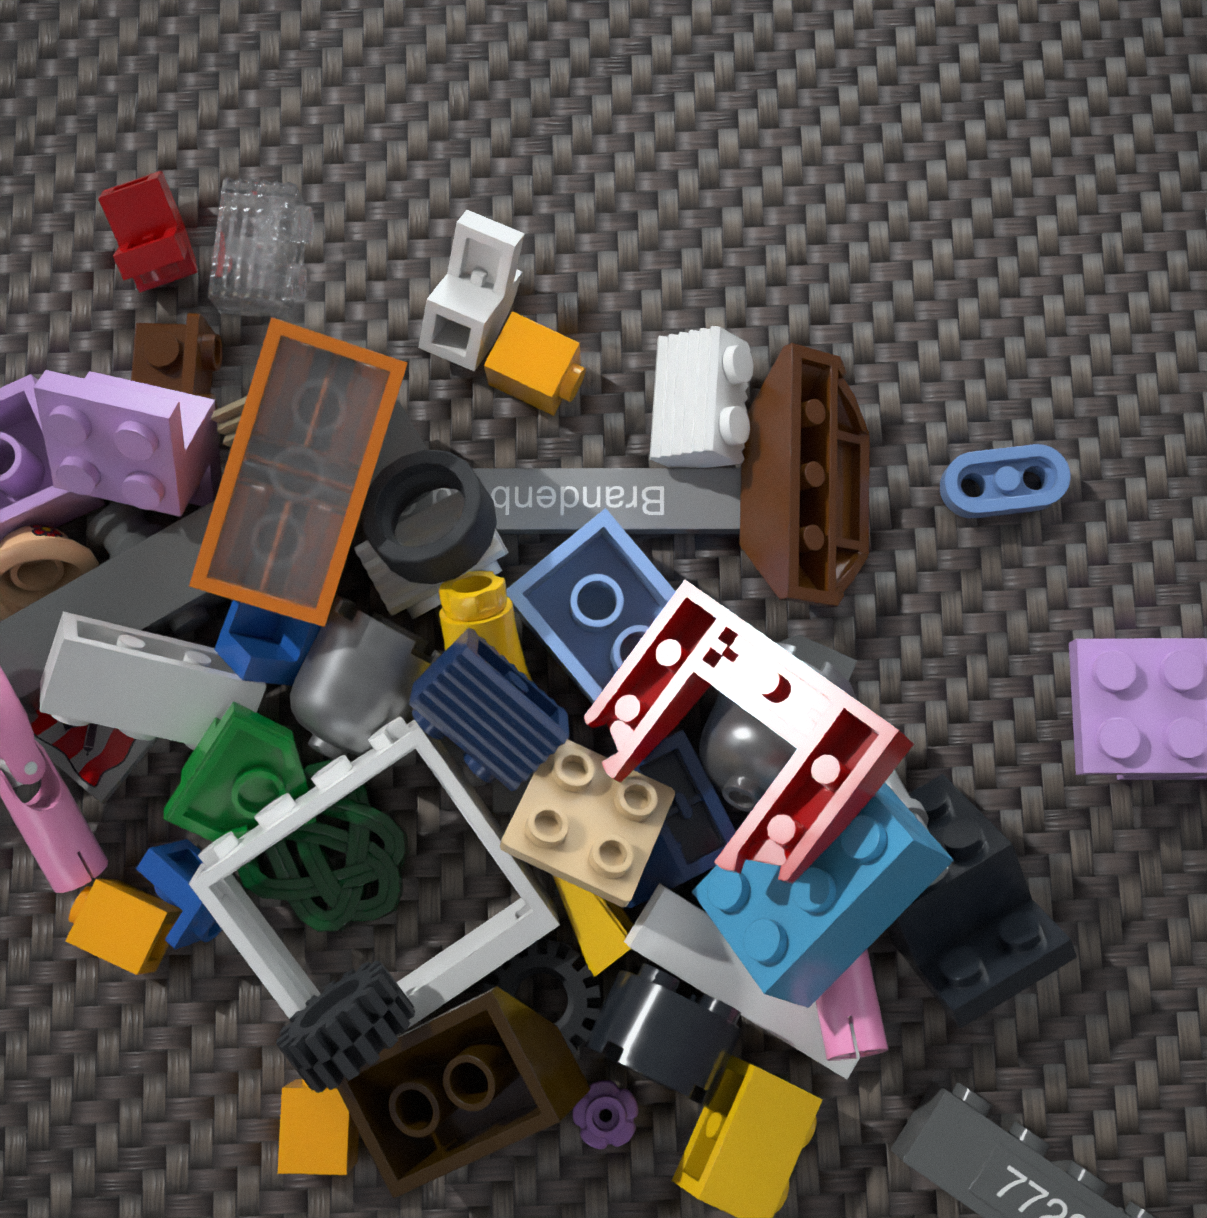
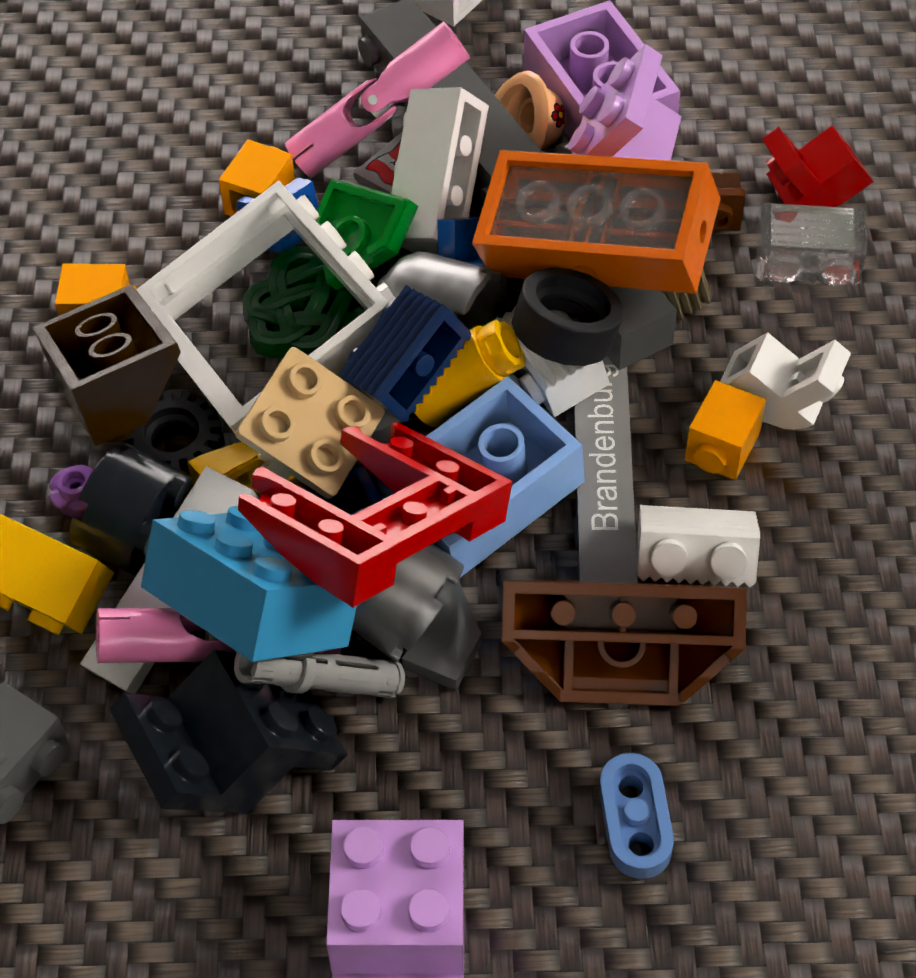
camera: 90 degrees right, 25 degrees down
(346, 1026) = (163, 271): black tyre -> none

